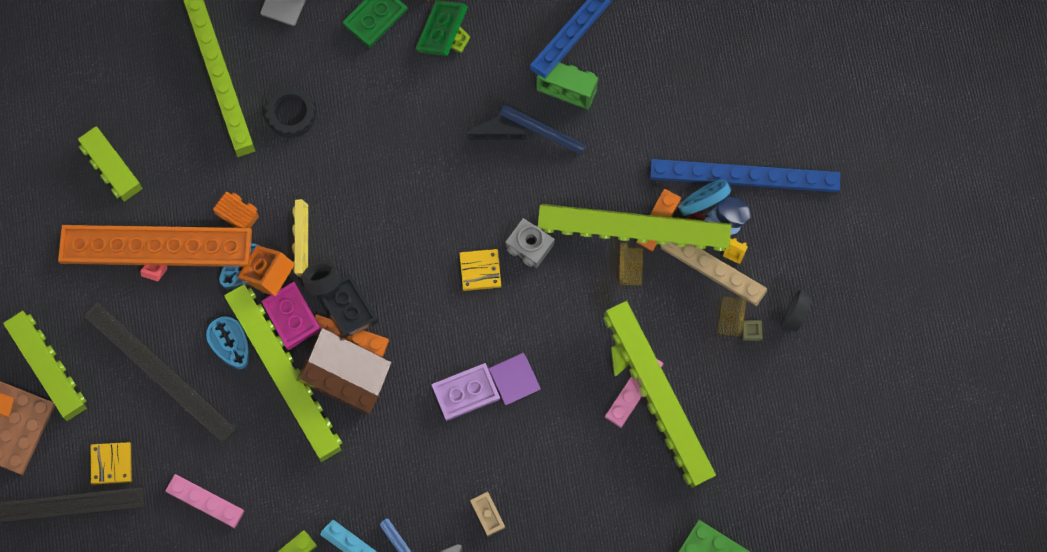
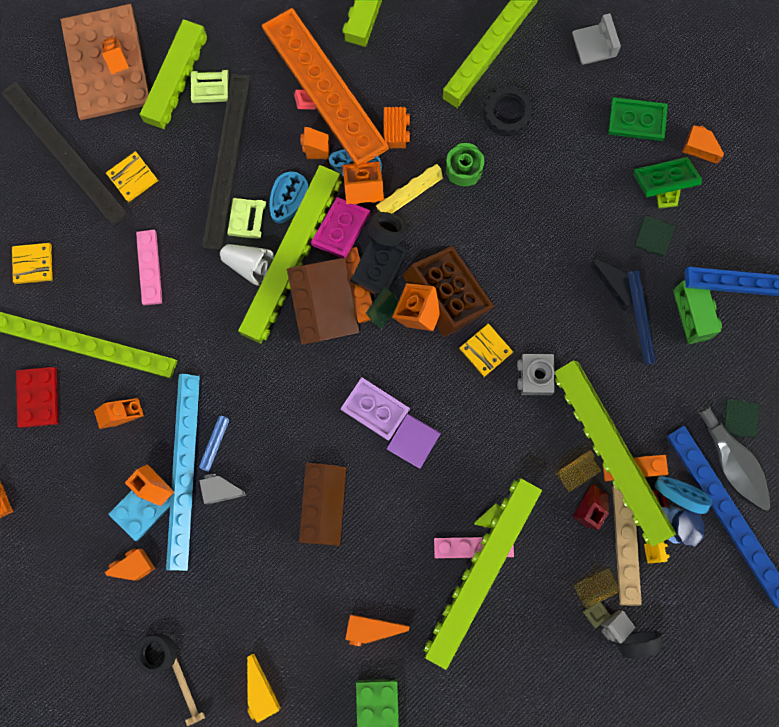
camera: 60 degrees right, 5 degrees up
(83, 346) = (209, 91): none -> yellowish green plate
(202, 287) = (315, 144): none -> orange slope
(217, 394) = (240, 218): none -> yellowish green plate
(263, 412) = (247, 261): none -> white cone
(316, 169) = (464, 154): none -> bright green brick
(386, 327) = (382, 308): none -> clear green piece
(407, 297) = (418, 307): none -> orange slope
(408, 266) = (457, 290): none -> reddish brown slope
(482, 72) = (654, 236): none -> clear green piece
(487, 514) = (285, 497): tan plate -> none
(514, 487) = (322, 504): none -> reddish brown slope
(642, 518) = (367, 629): none -> orange slope
(668, 274) = (593, 508): none -> dark red slope
(676, 112) = (741, 418): none -> clear green piece
(708, 139) = (737, 462): none -> dark grey animal
(772, 320) = (617, 627): none -> light grey slope

